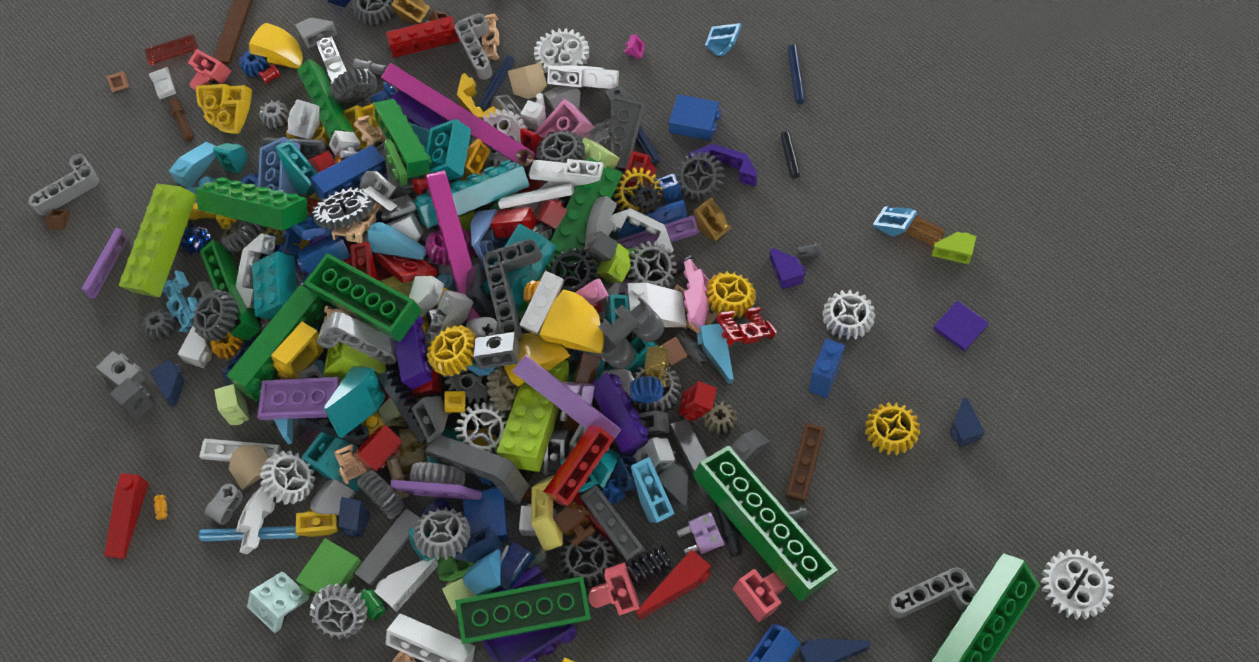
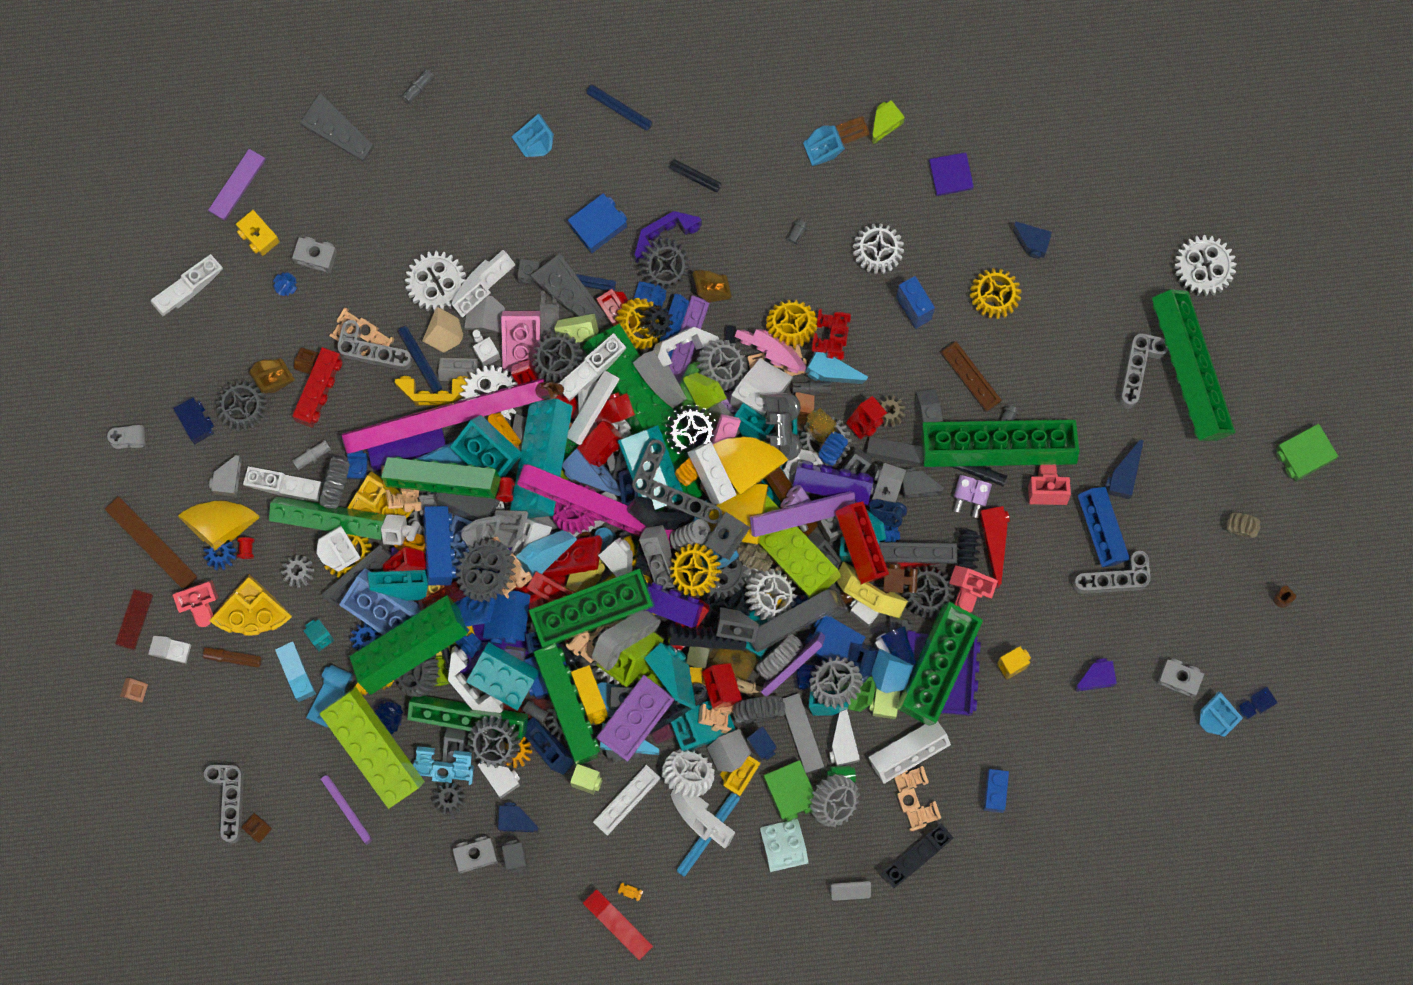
camera: 60 degrees left, 15 degrees up
(223, 504) = (669, 842): light grey piece -> none
(247, 464) = (649, 798): tan slope -> none
(380, 198) = (498, 534): white sticker -> none
(394, 160) = (465, 498): bright green hinge -> none
(454, 401) = (735, 599): yellow tile -> none
(600, 246) = (686, 391): dark grey brick -> none
(635, 47) = (482, 215): dark pink tile -> none
(651, 492) = (918, 507): medium azure slope -> none
(786, 268) = (801, 262): dark purple slope -> none

